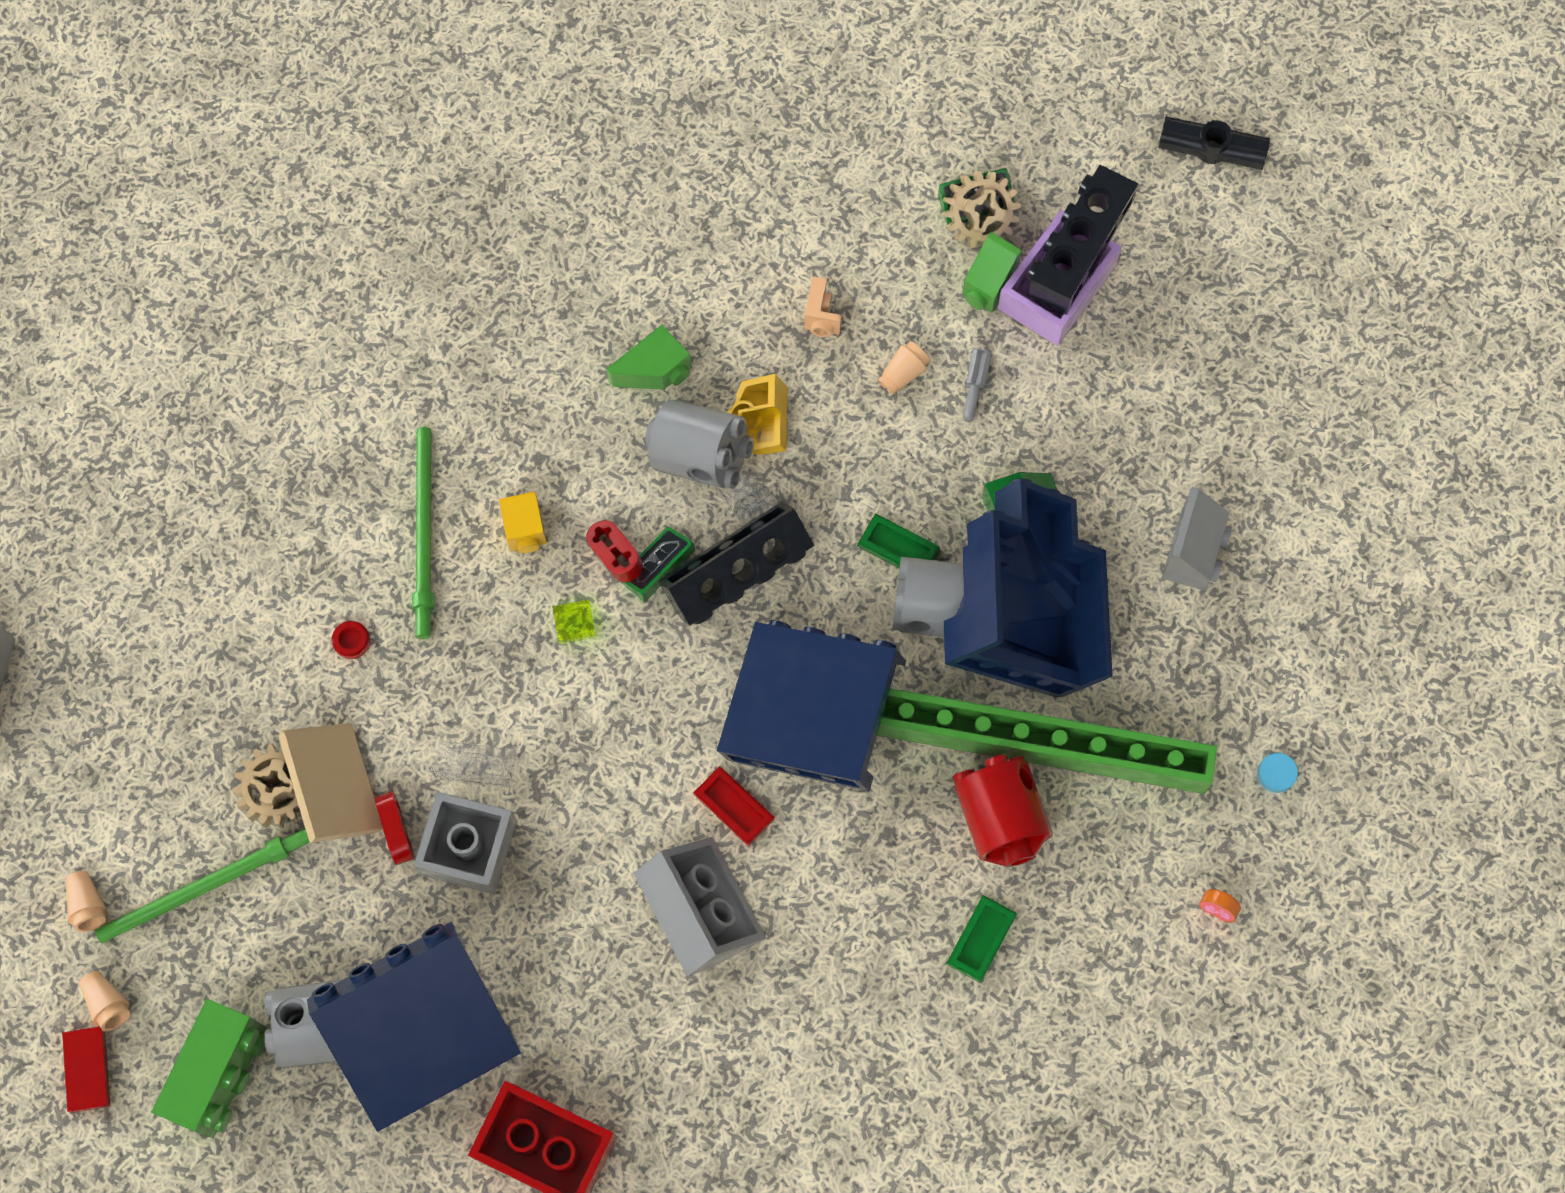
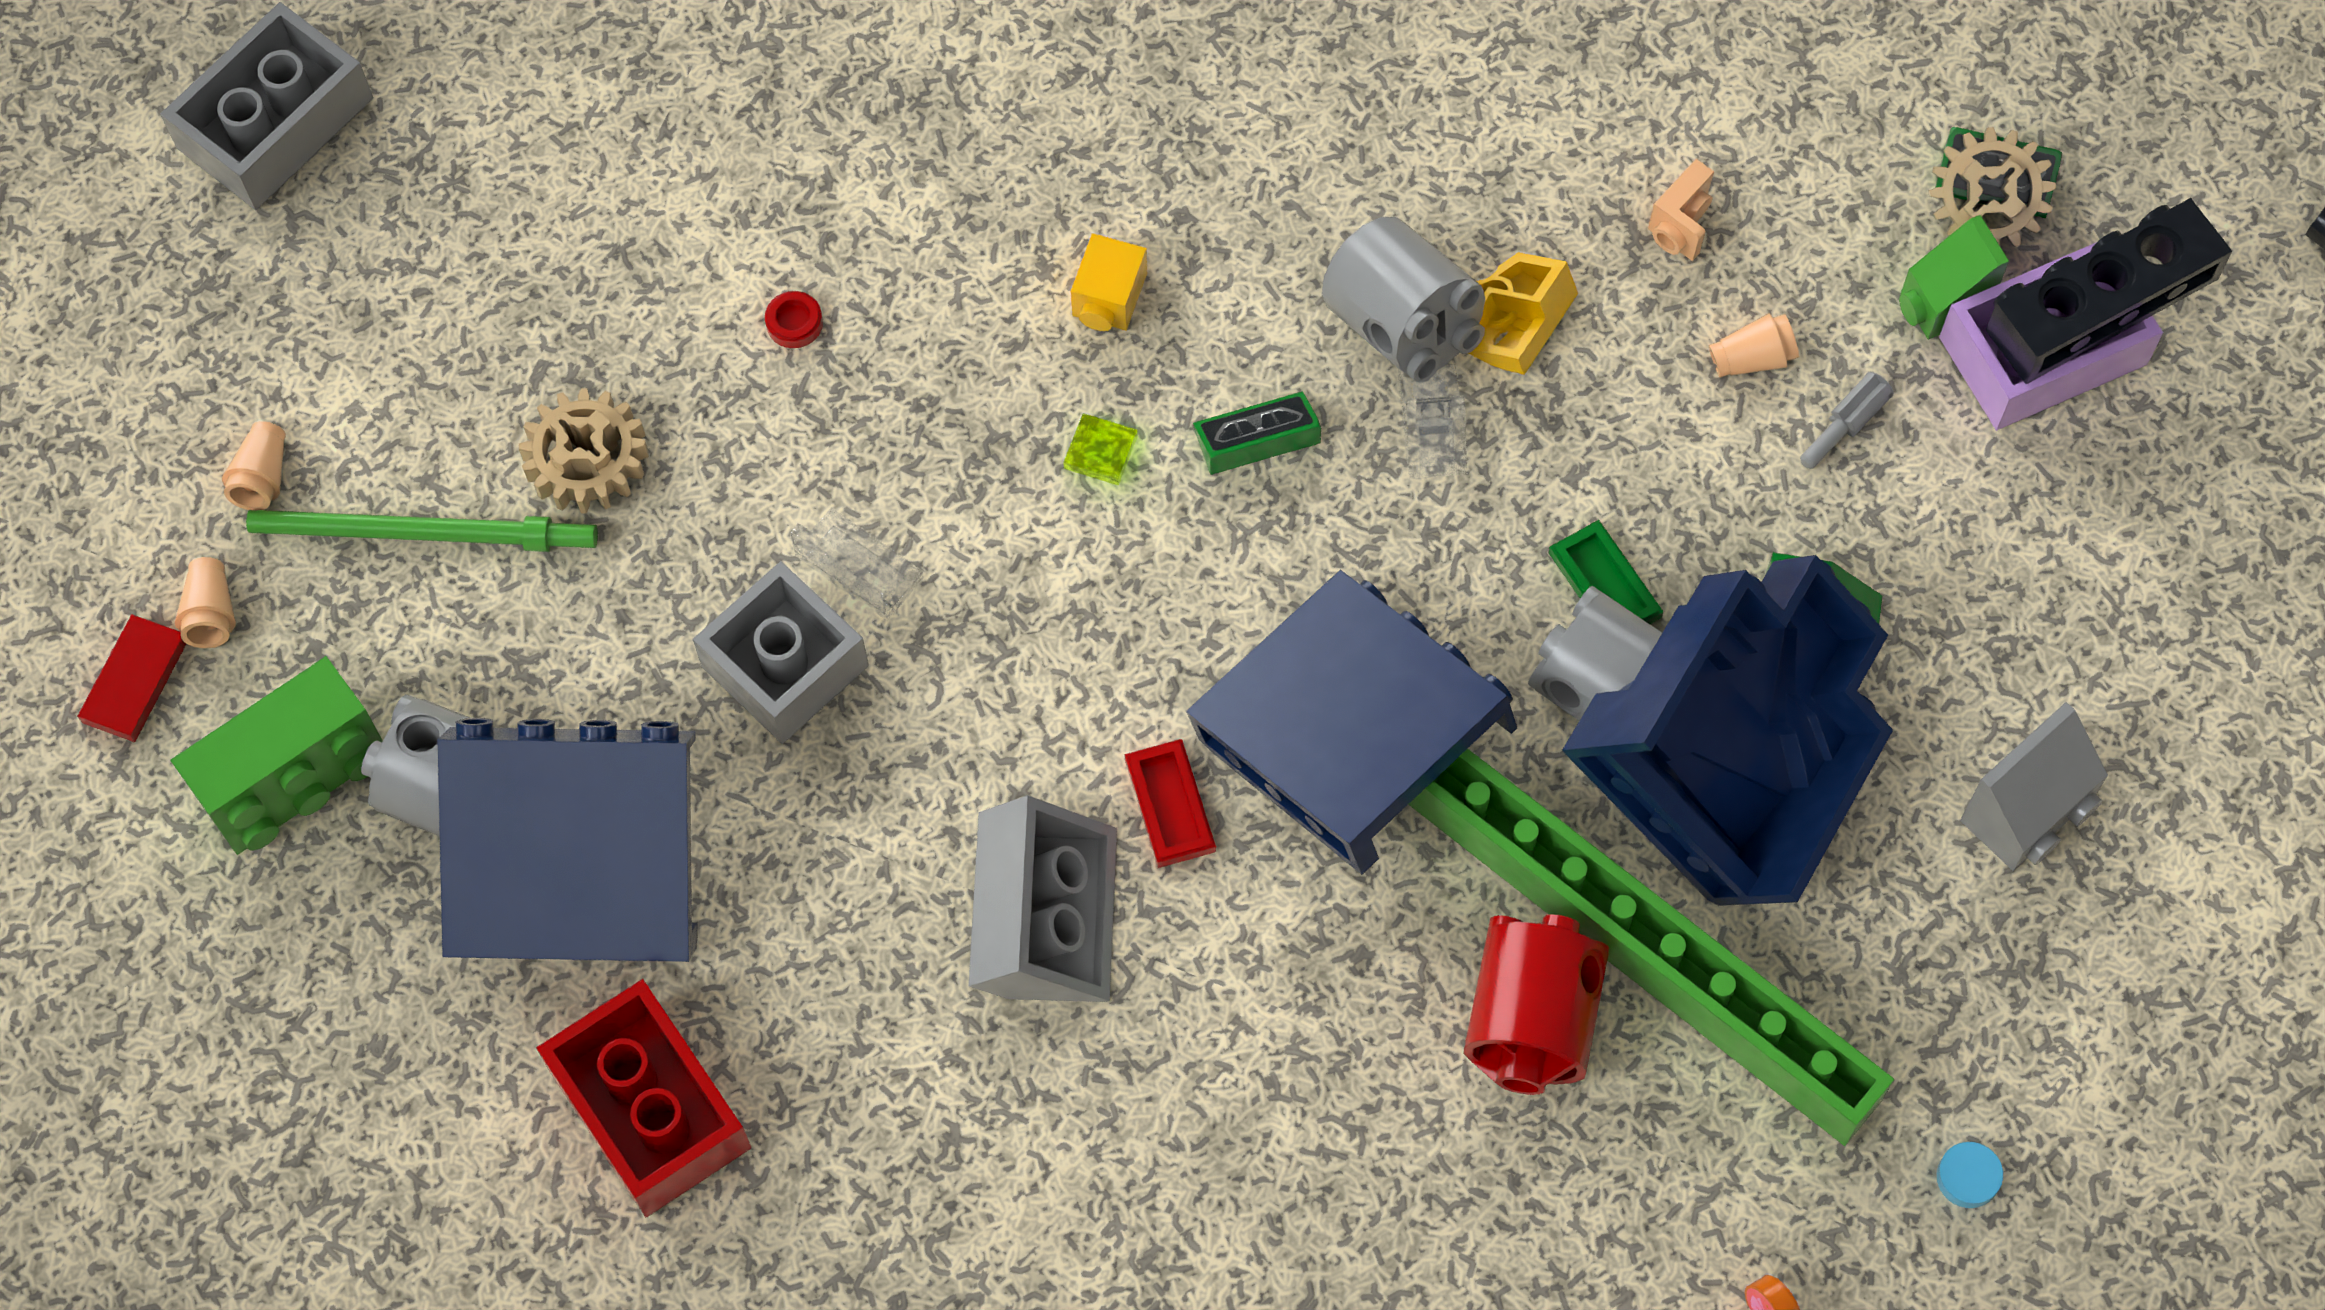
camera: 30 degrees right, 5 degrees down
(330, 782) = (654, 481): tan tile -> none
(394, 828) = (702, 584): red beam -> none
(423, 597) = (919, 313): bright green bar -> none
(608, 555) = (1217, 382): red beam -> none
(652, 363) = (1406, 166): bright green slope -> none
(716, 563) = (1274, 471): black brick -> none
(981, 939) = (1405, 1166): green tile -> none

